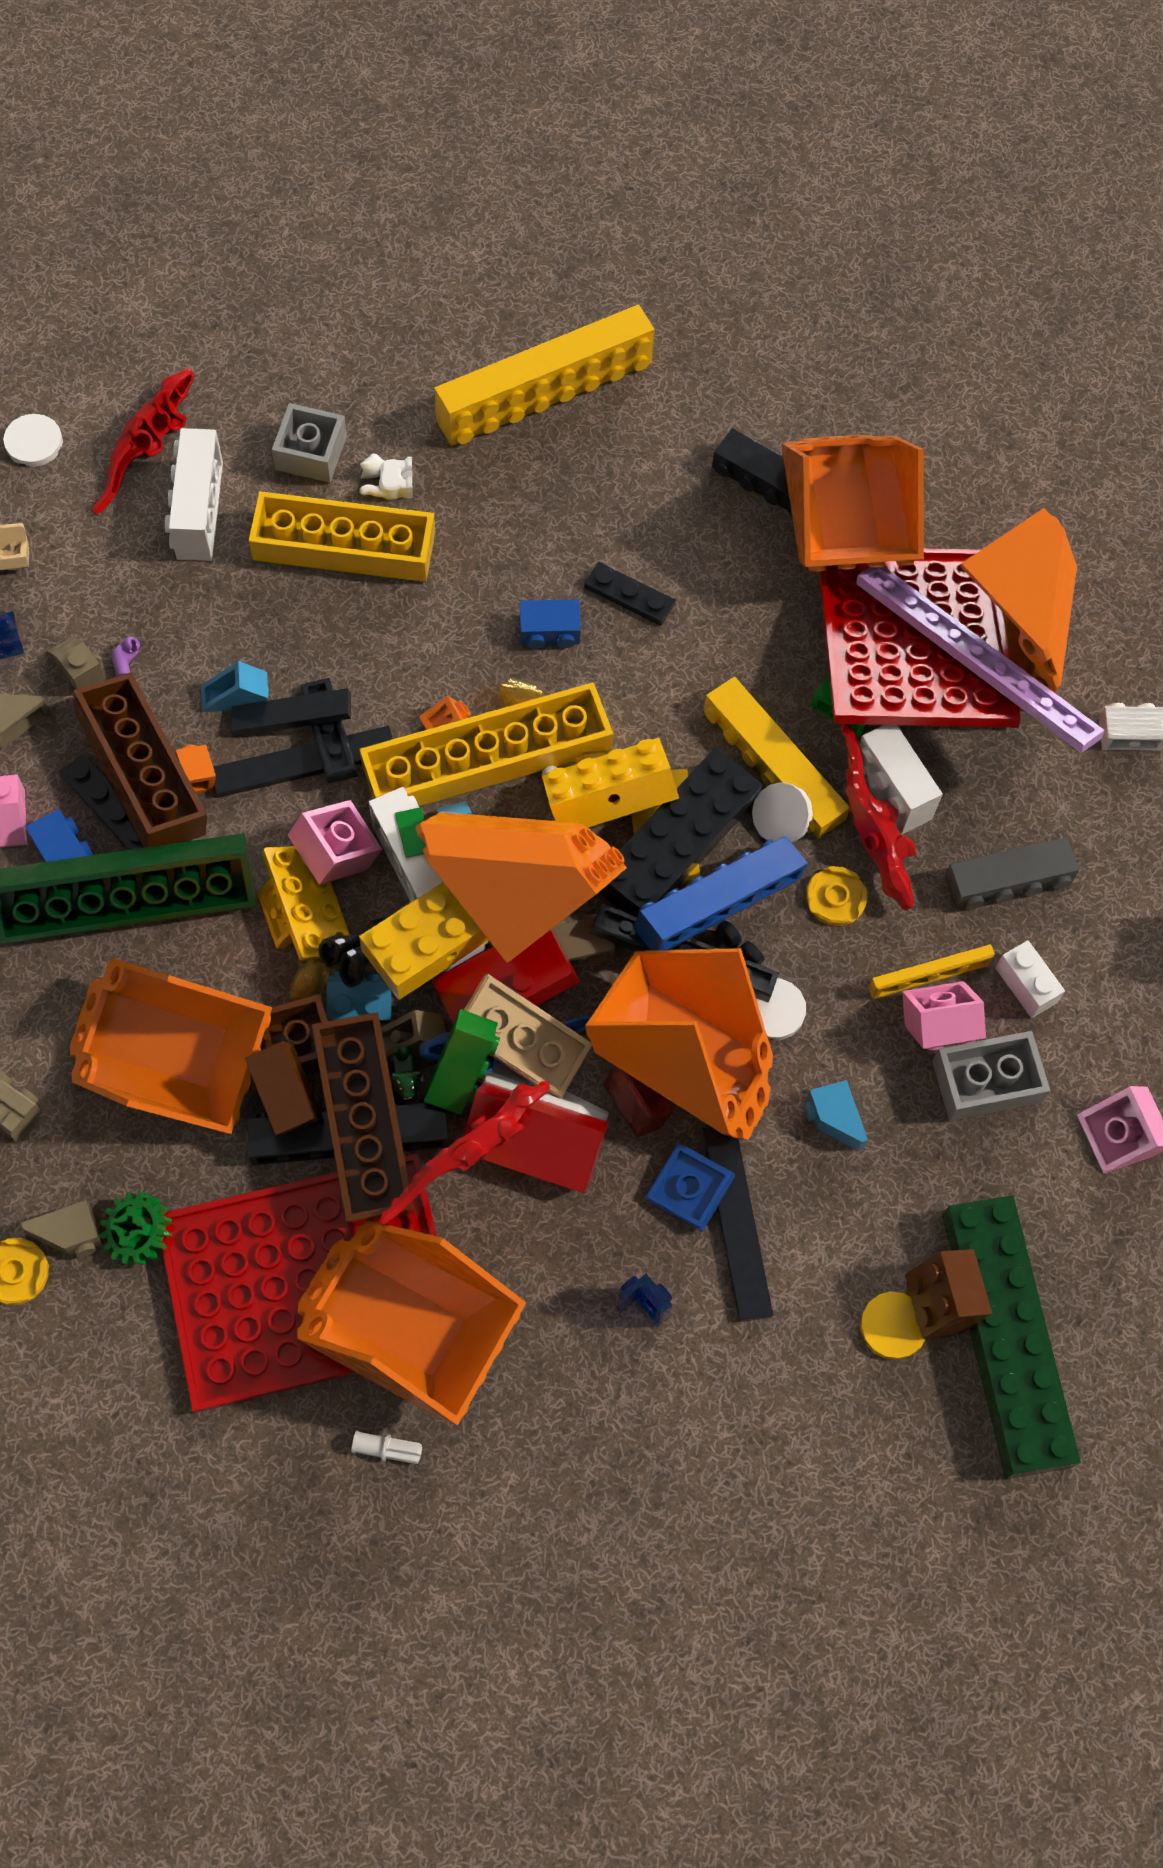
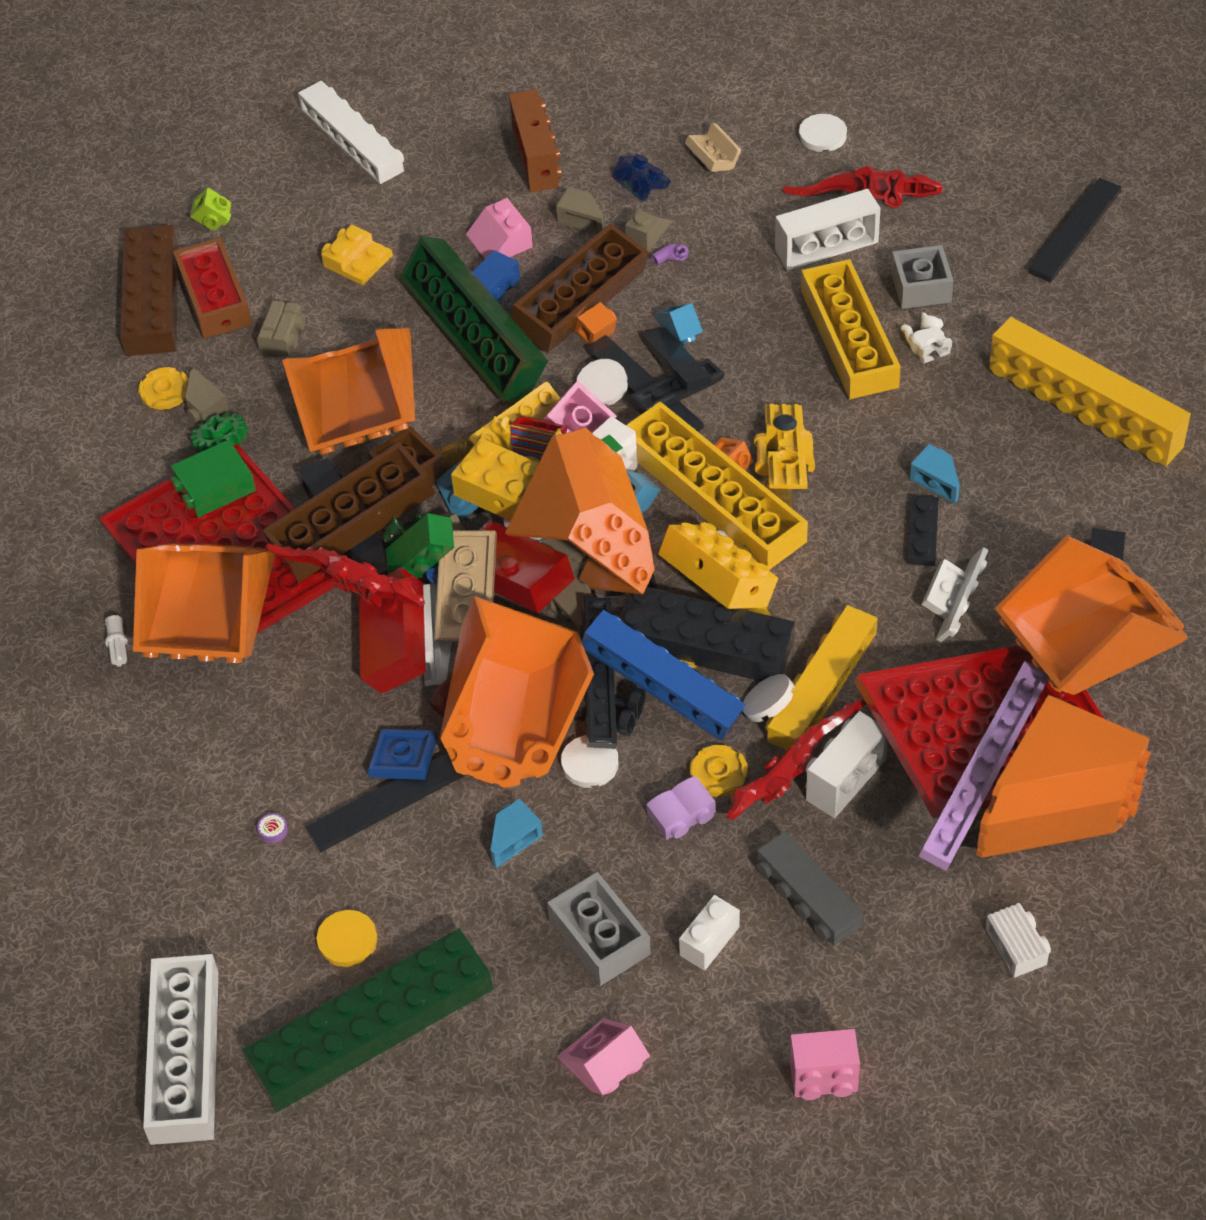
camera: 75 degrees right, 15 degrees down
(213, 1257) = (212, 478): none -> green brick
(279, 797) = (605, 380): none -> white tile
(283, 1088) = (350, 452): reddish brown piece -> none
(313, 289) = (1075, 230): none -> black tile
(356, 889) = (527, 435): none -> torso
(473, 653) = (792, 444): none -> yellow piece
(550, 623) = (856, 485): blue brick -> none
(571, 547) = (936, 472): none -> dark azure slope
(651, 1297) = (290, 749): clear blue bracket -> none
(723, 1356) = (272, 828): none -> tile
(724, 600) = (950, 591): none -> white bracket
(873, 945) = (681, 808): none -> lavender brick
(931, 971) = (678, 856): yellow tile -> none
(944, 1015) = (634, 869): bright pink brick -> none
(948, 1293) = (379, 949): reddish brown brick -> none
(980, 1539) = (181, 1050): none -> white brick

